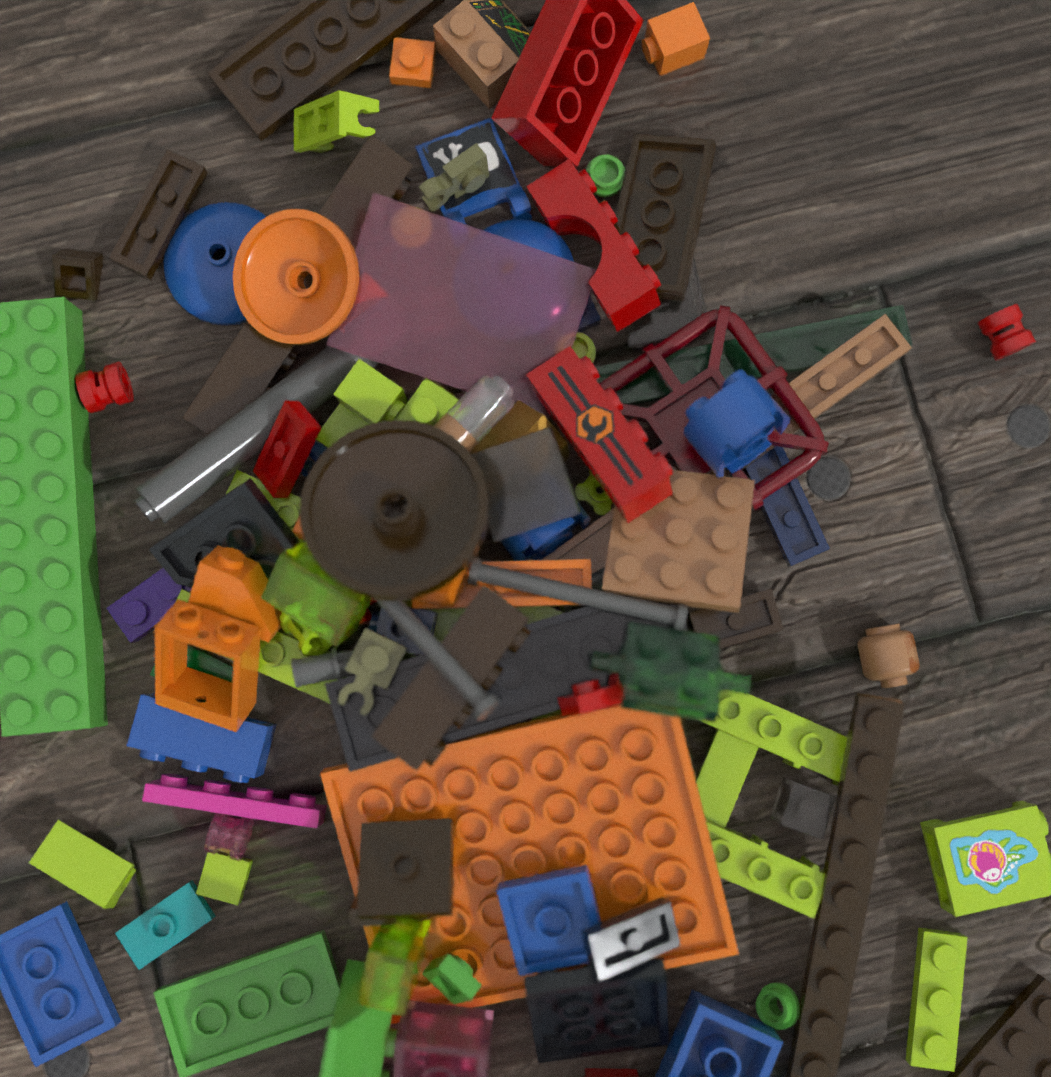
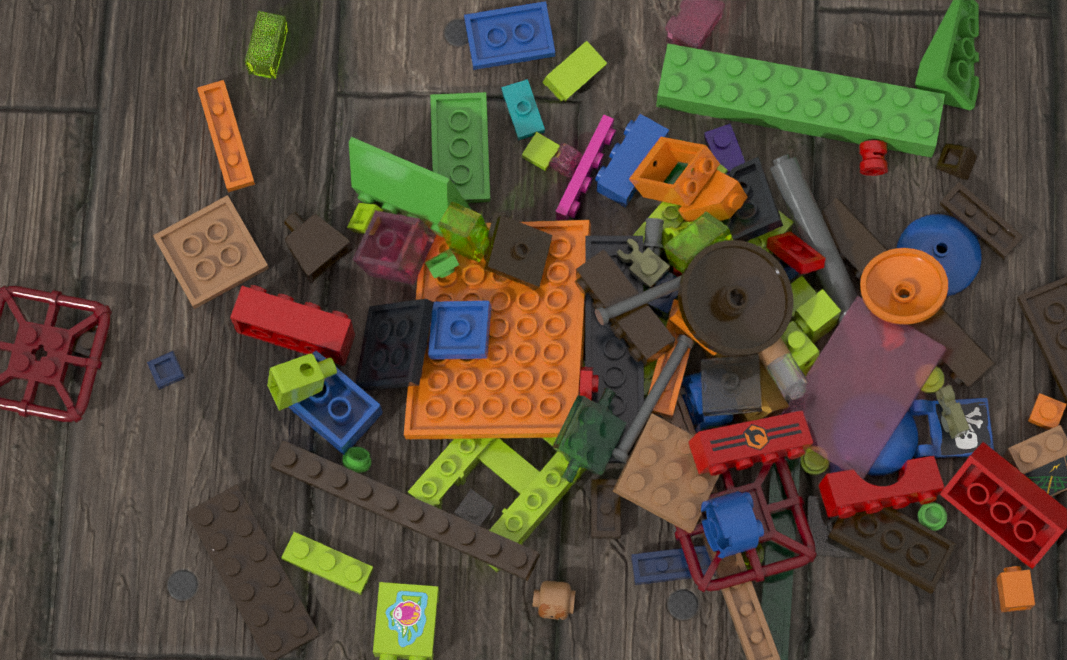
camera: 110 degrees right, 10 degrees down
(331, 119) = (1009, 340): lime hinge -> none
(630, 938) = (437, 369): plate -> none

